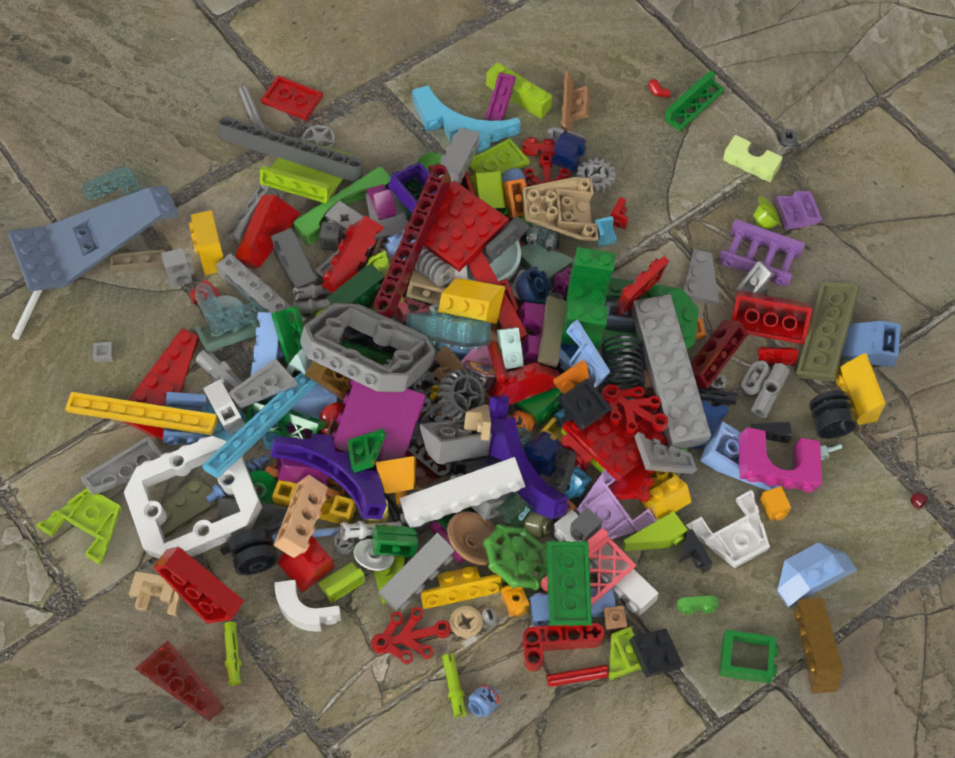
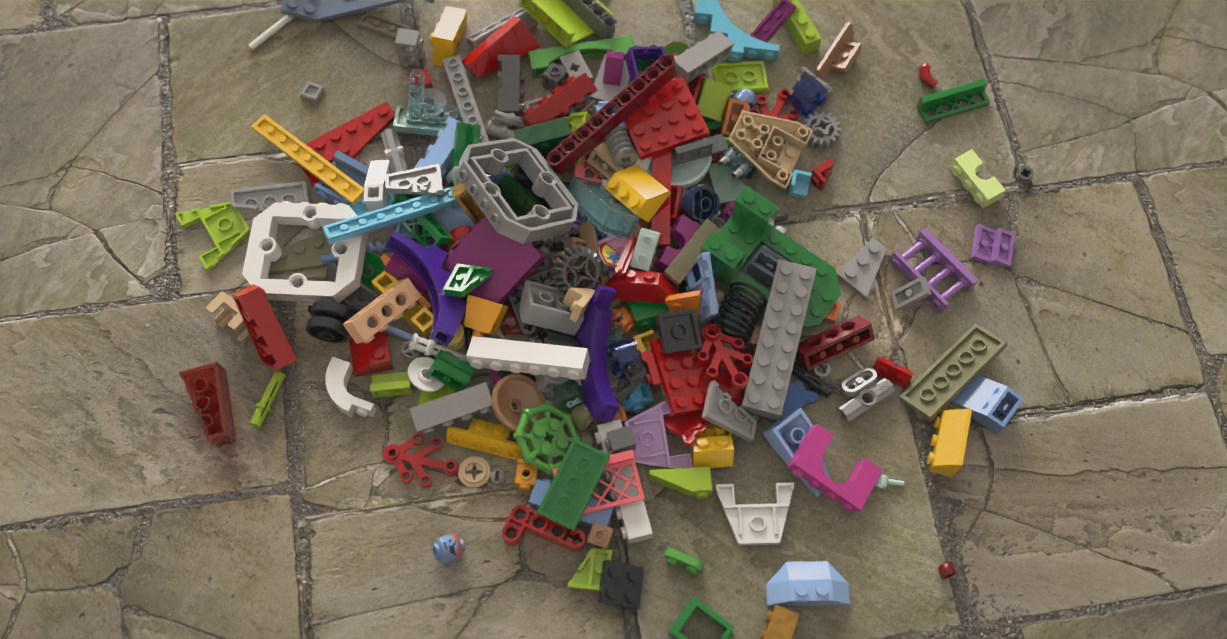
camera: 25 degrees right, 5 degrees up
(455, 693) = (429, 531): lime pin -> none
(533, 145) = (780, 76): red hinge -> none
(577, 675) = (542, 569): red axle -> none
(642, 285) = (793, 247): red plate -> none
(694, 548) = (708, 507): black slope -> none
(766, 214) = (959, 236): lime piece -> none
(772, 316) = (907, 333): red slope -> none
(775, 431) = (846, 439): black slope -> none
(775, 504) = (808, 506): light orange brick -> none
(833, 414) = (909, 451): black wheel -> none

